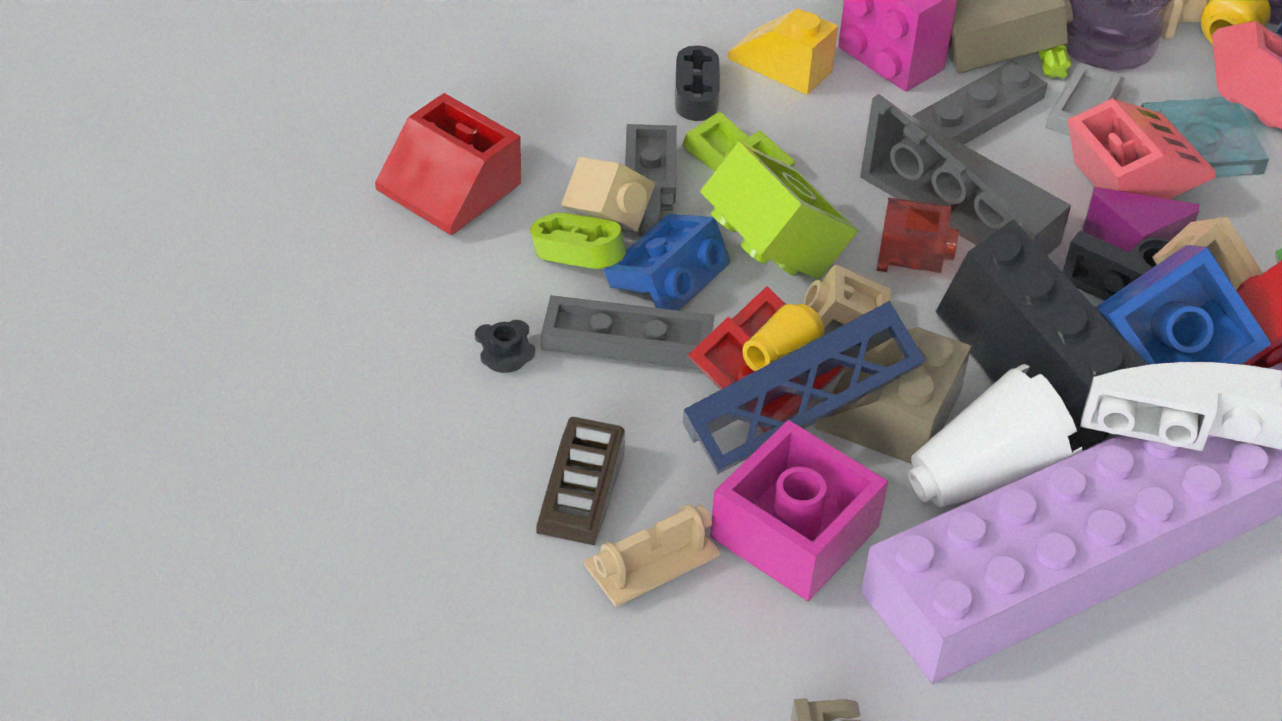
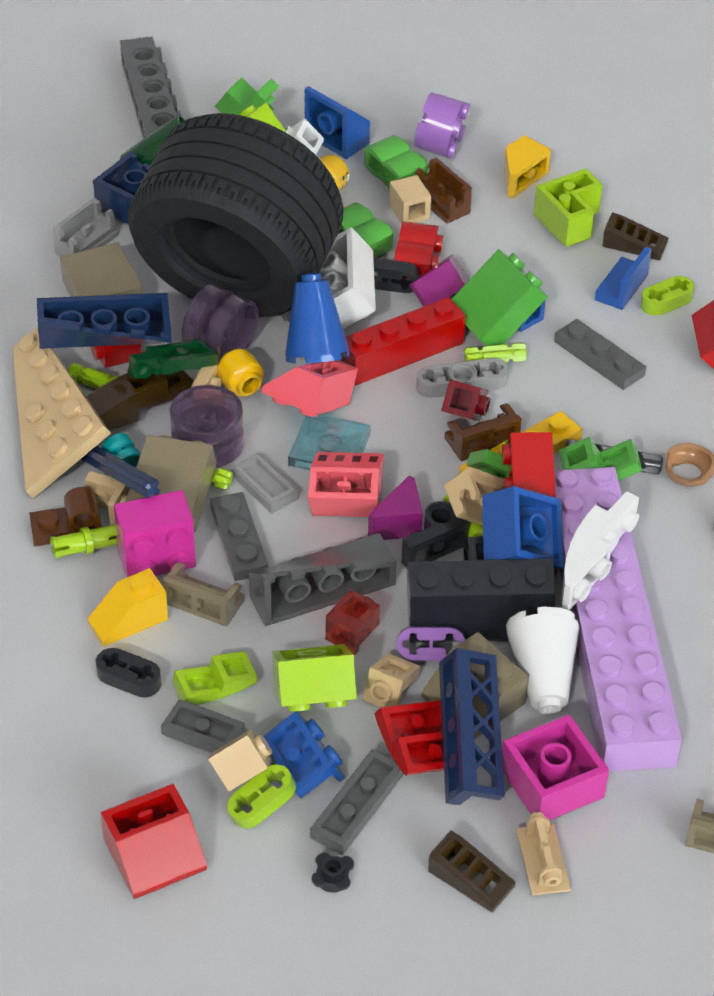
camera: 65 degrees left, 0 degrees up
(782, 334) = (431, 717): yellow cone -> none
(852, 95) = (201, 597): none -> dark tan hinge
(945, 312) = (430, 634): none -> medium lavender beam

